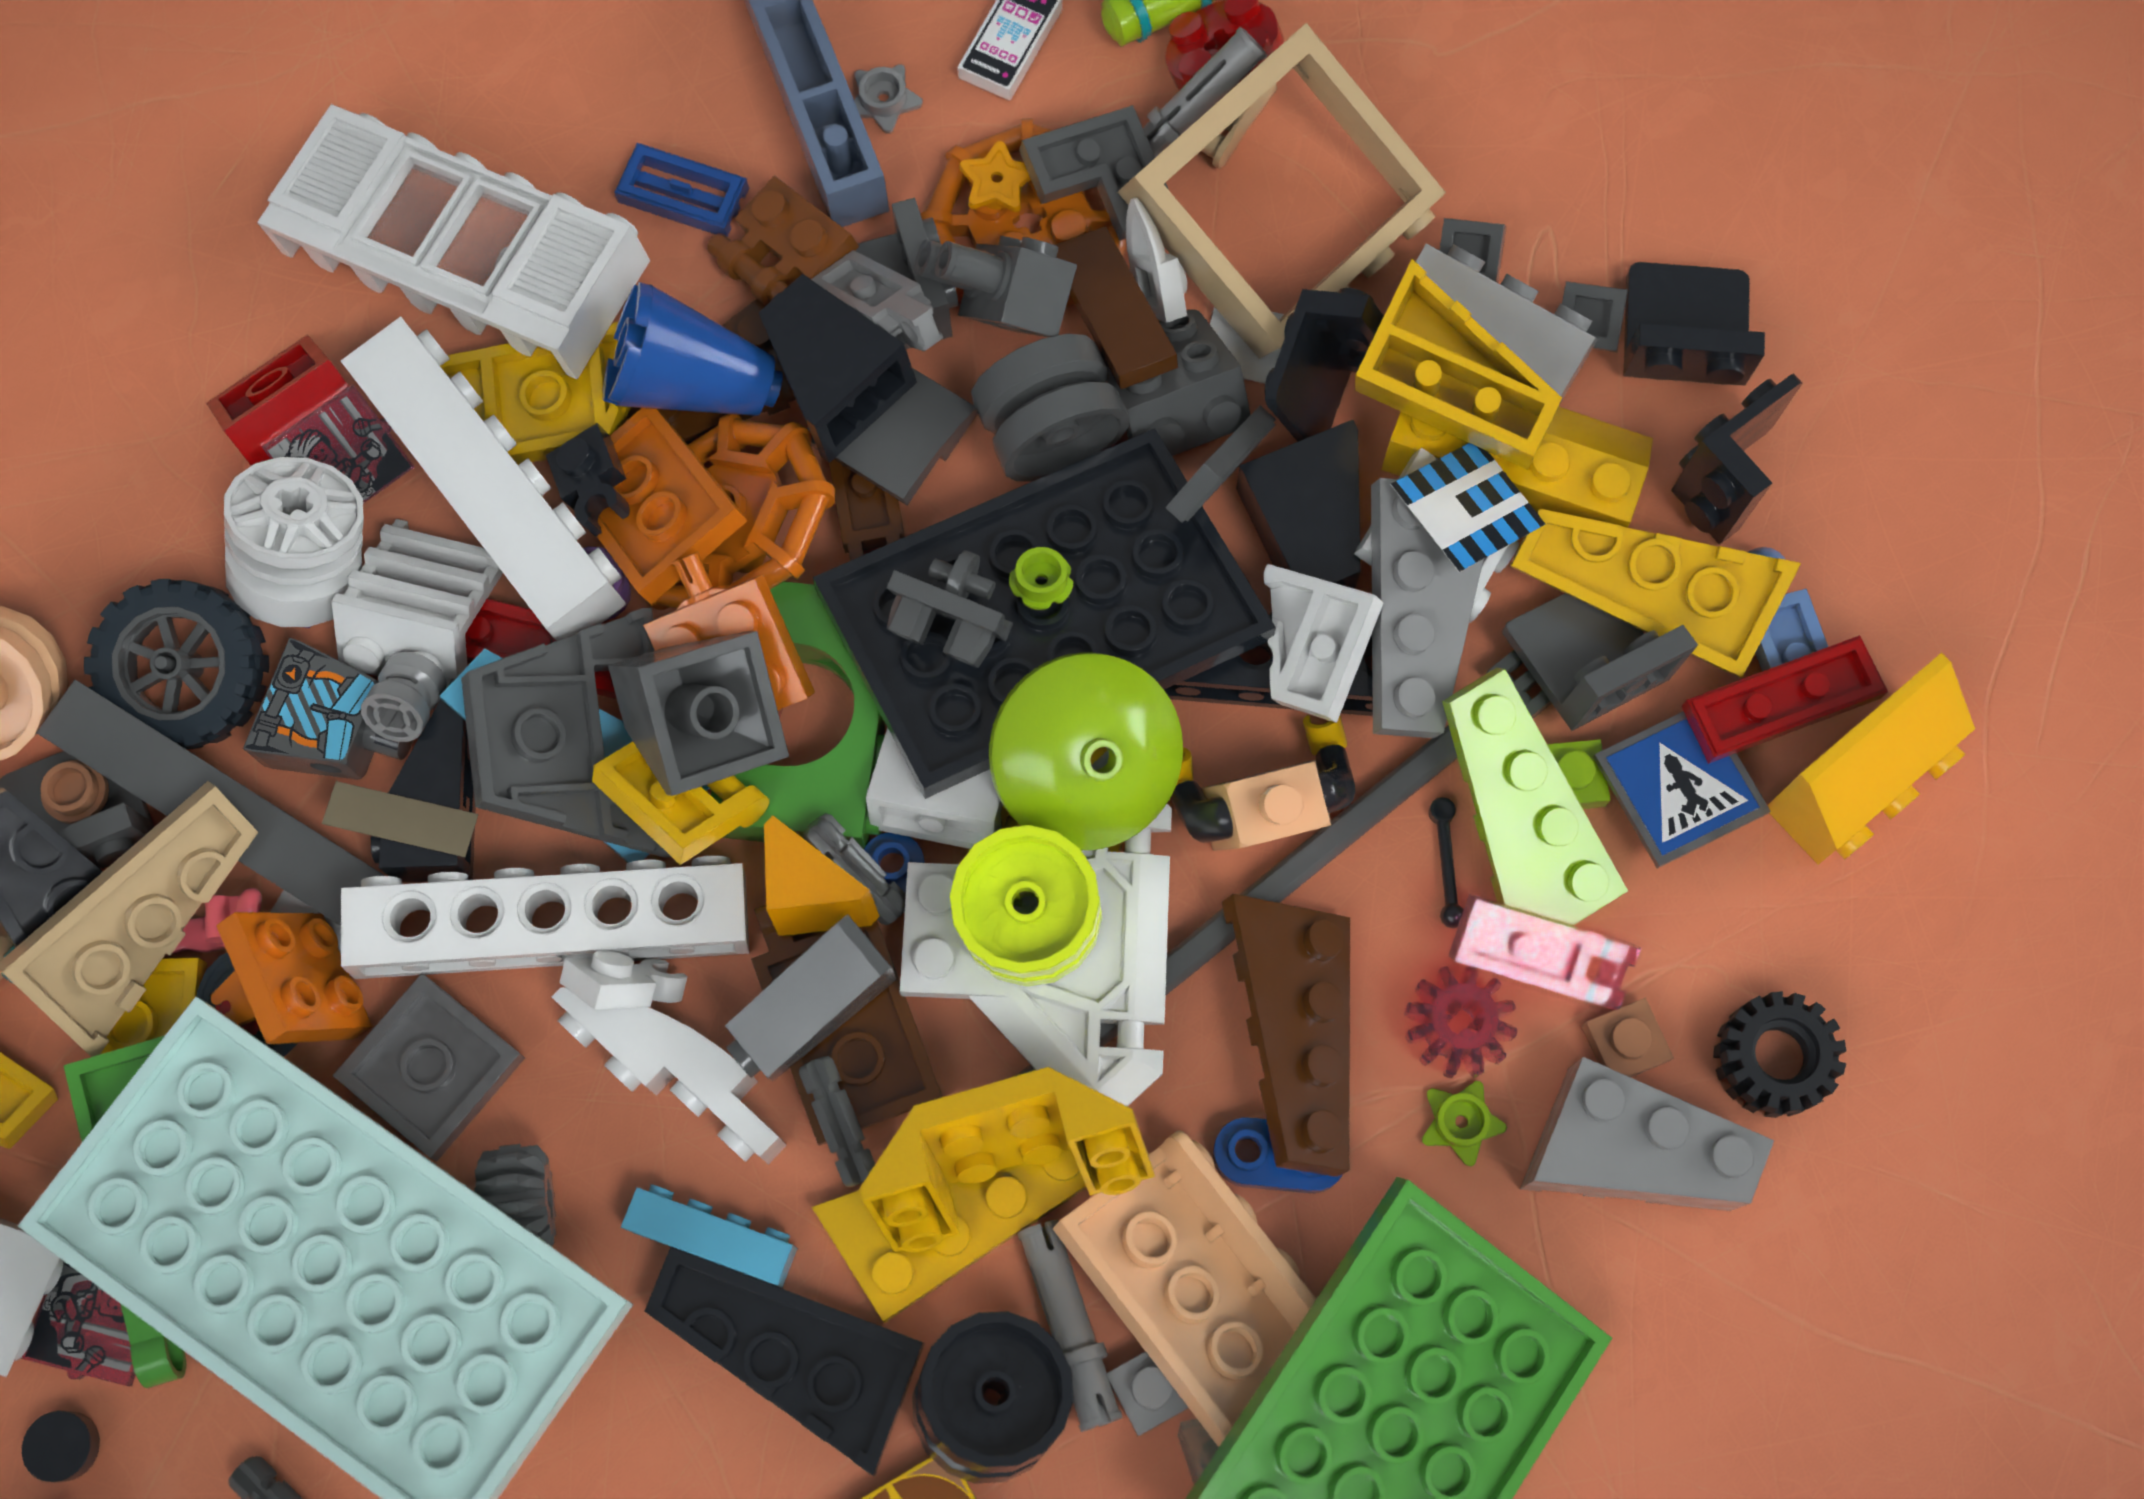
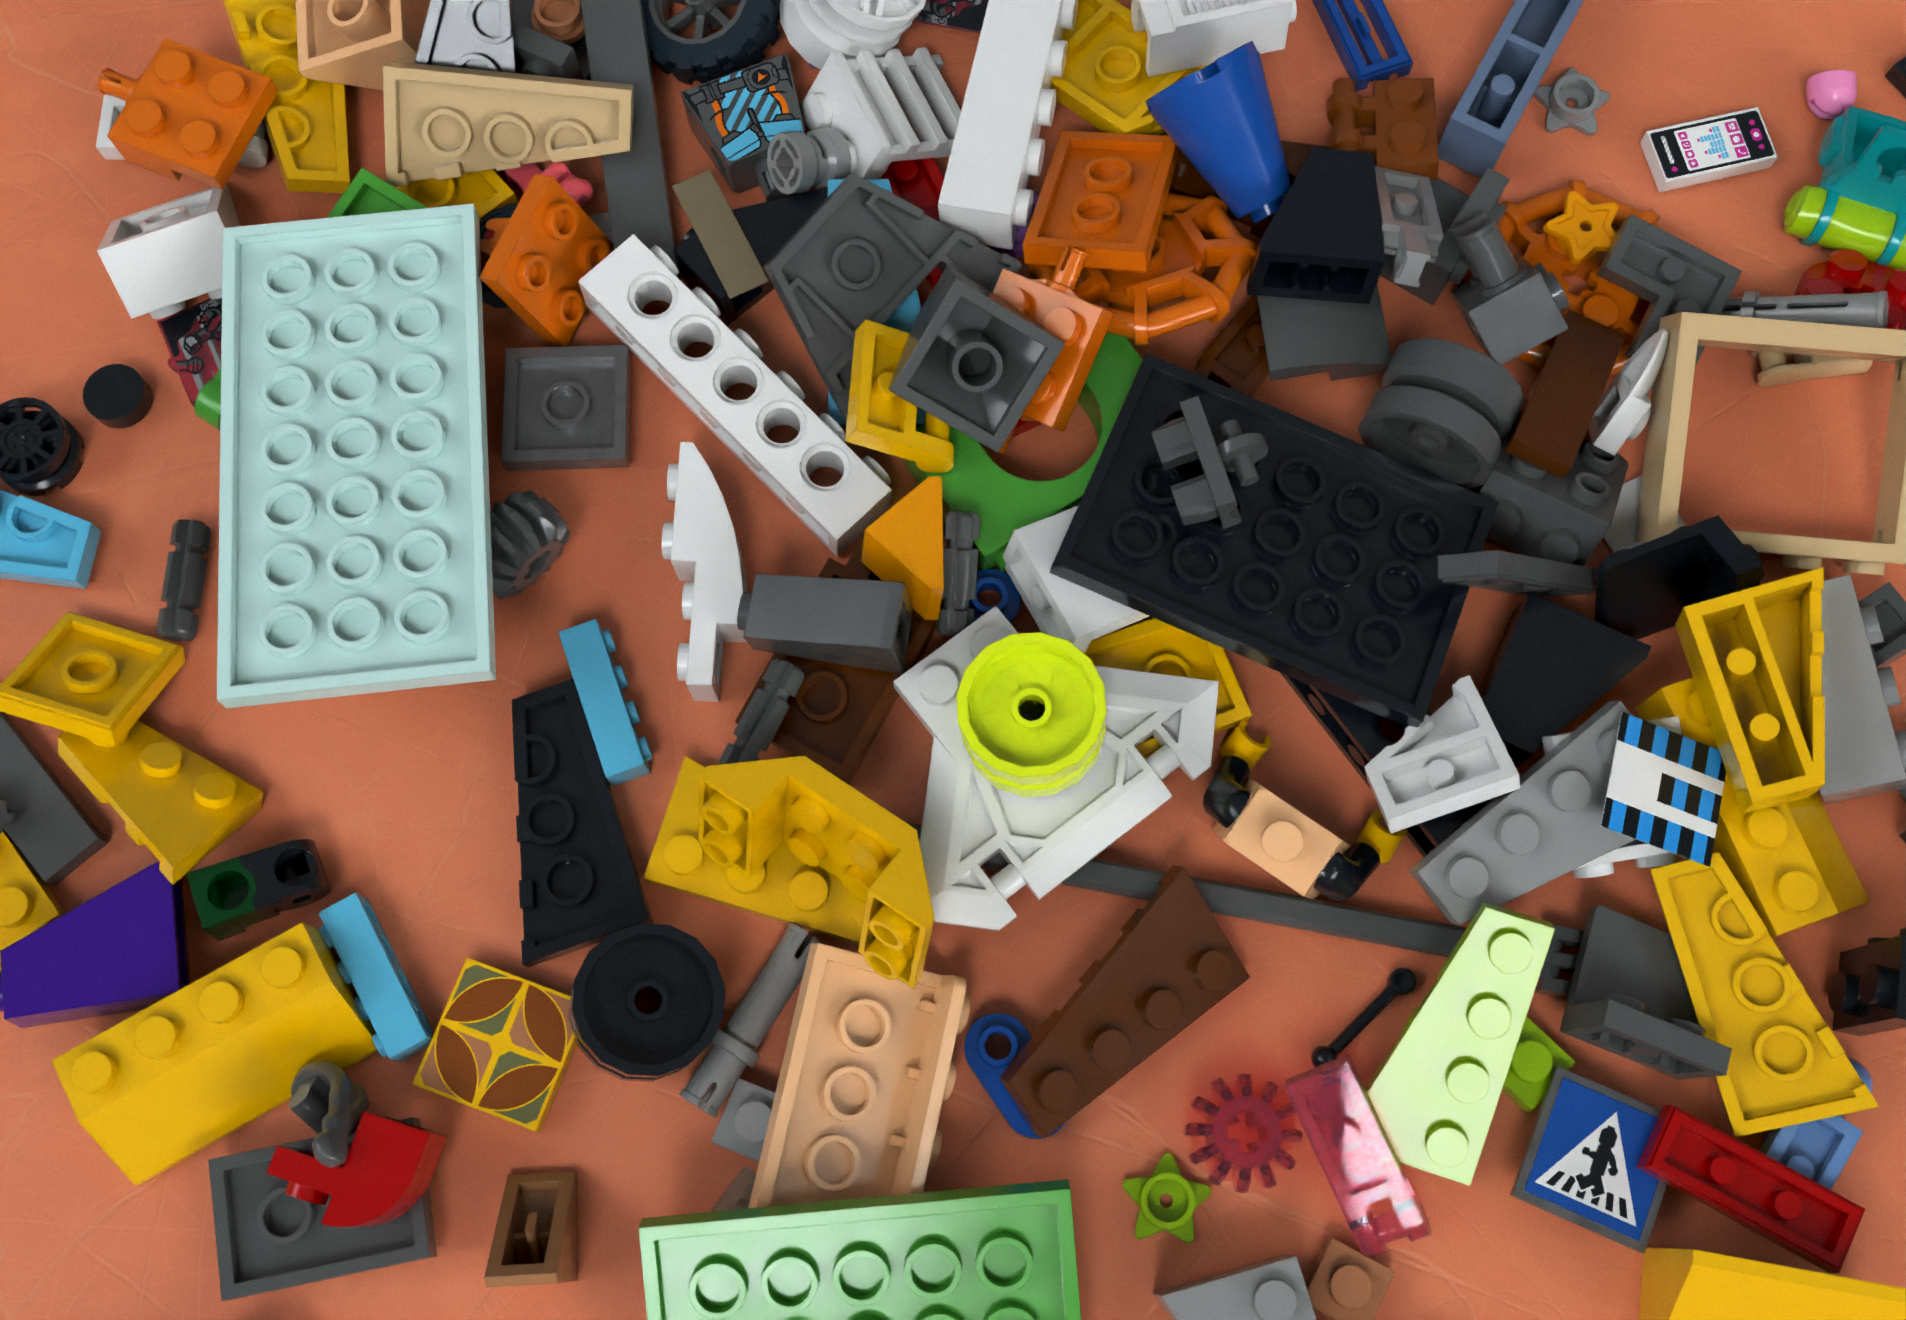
camera: 50 degrees right, 0 degrees up
(585, 476) = (1080, 140): black plate -> none
(614, 982) = (727, 476): white plate -> none
(1041, 563) = (1304, 500): lime plate -> none
(1055, 724) = (1200, 615): lime dish -> none

